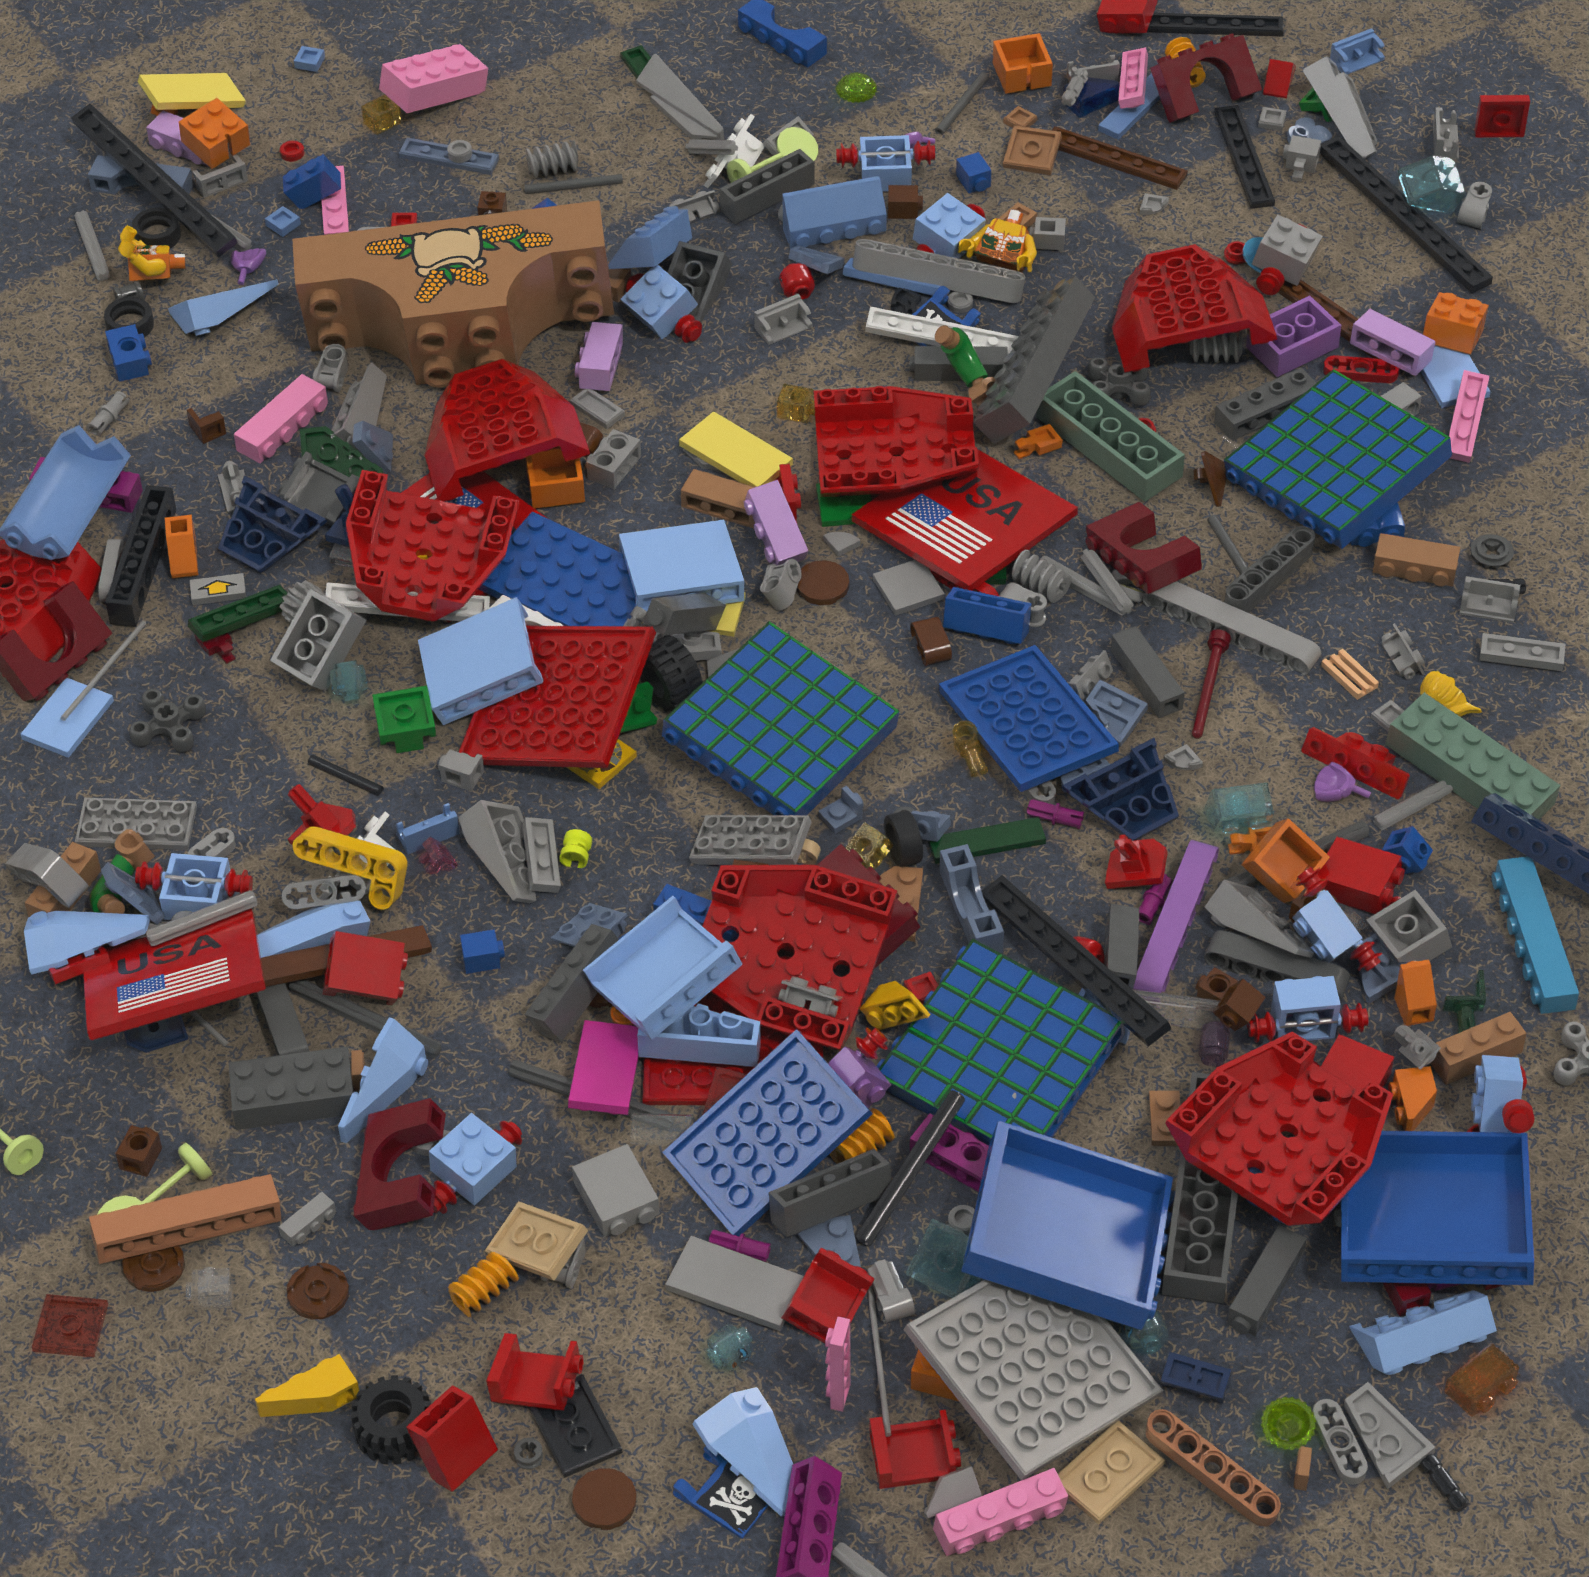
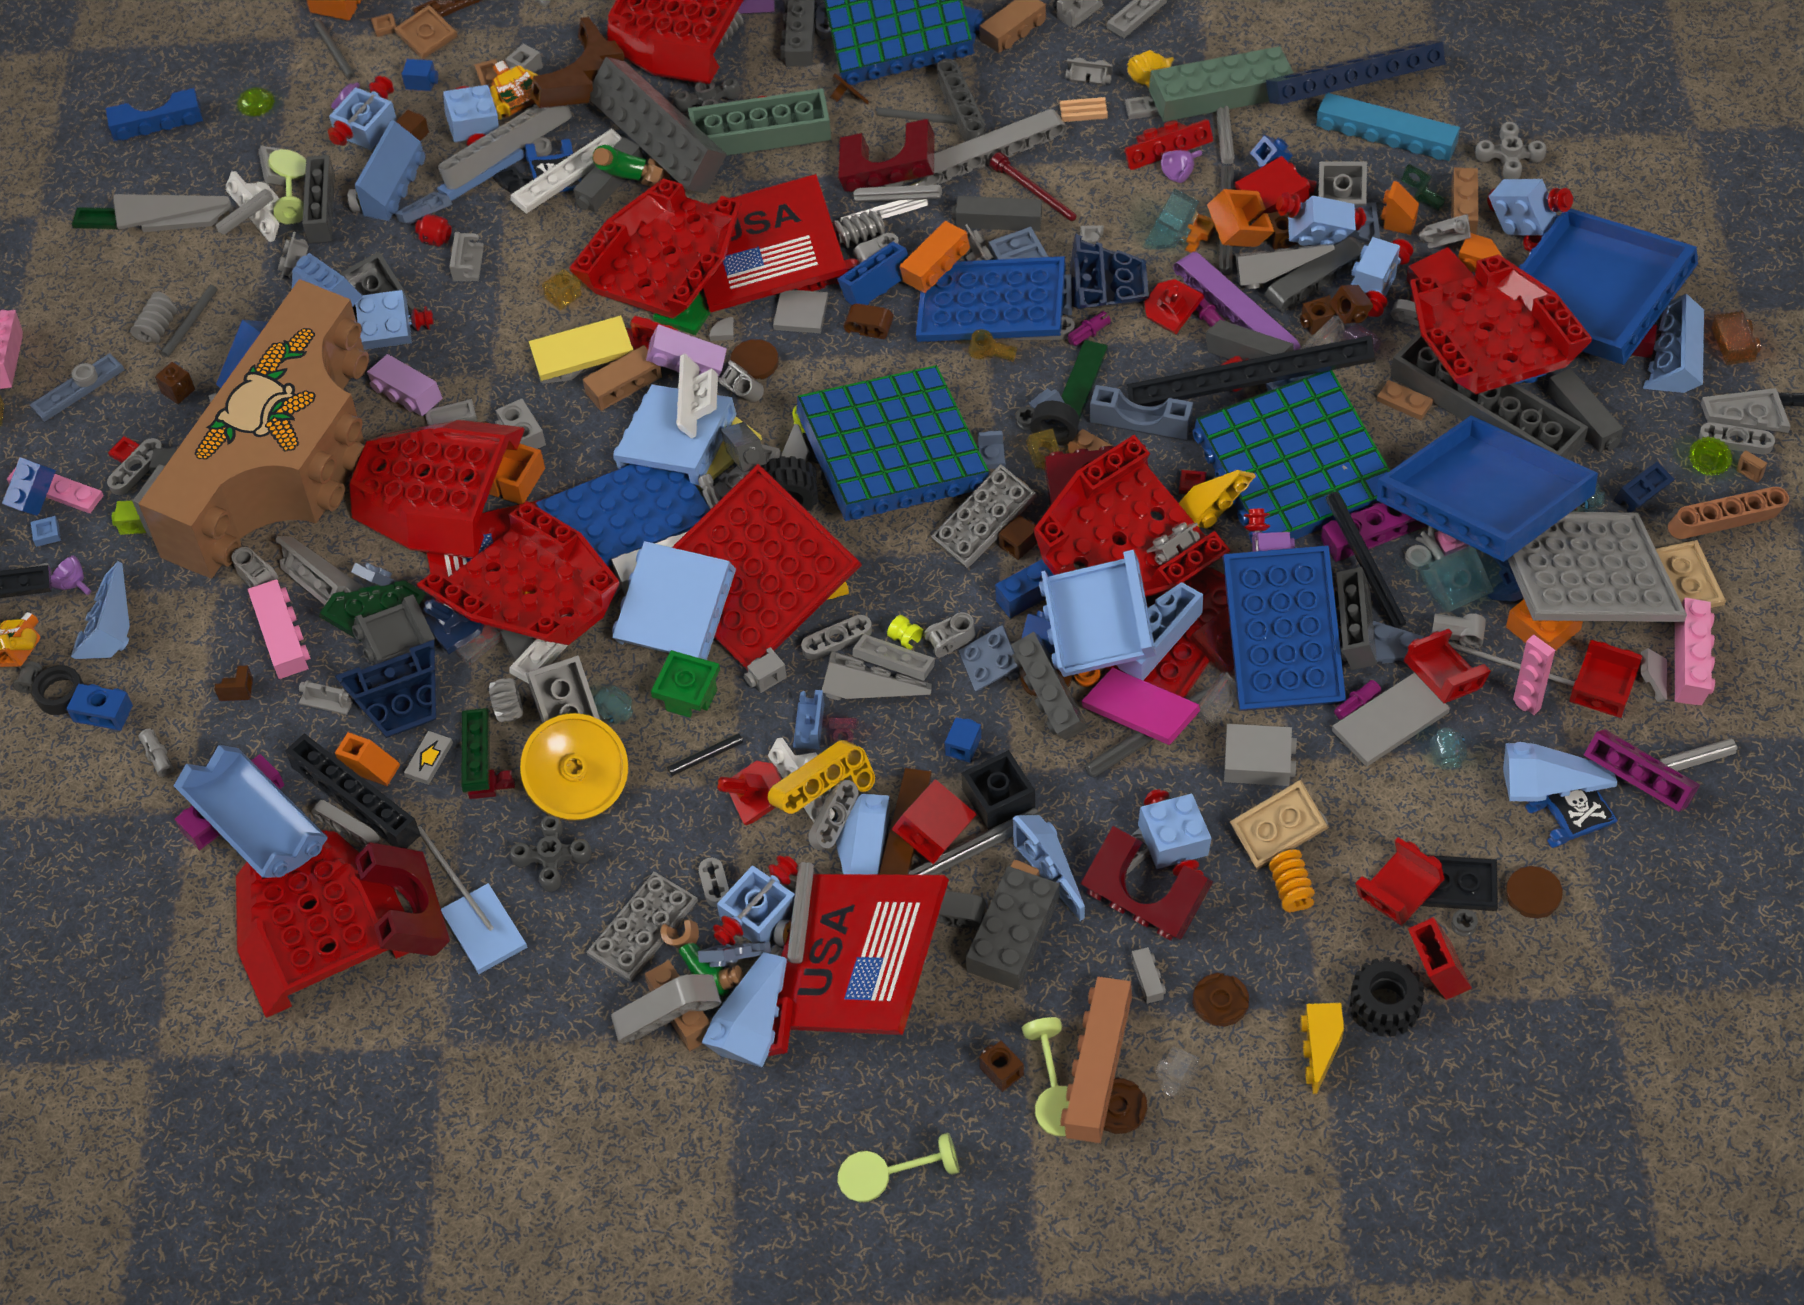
camera: 55 degrees left, 5 degrees up
(70, 1325) = (1143, 1194): clear red tile -> none
(258, 684) = (574, 767): none -> yellow dish
(436, 1002) = (998, 789): none -> black brick
(534, 794) = (839, 628): none -> light grey beam
(597, 885) = (950, 635): none -> light grey piece
(718, 549) = (695, 395): none -> white bracket
(1034, 274) = (575, 81): none -> reddish brown arch
(1039, 645) = (935, 256): none -> orange brick
(1041, 439) = (727, 169): orange plate -> none

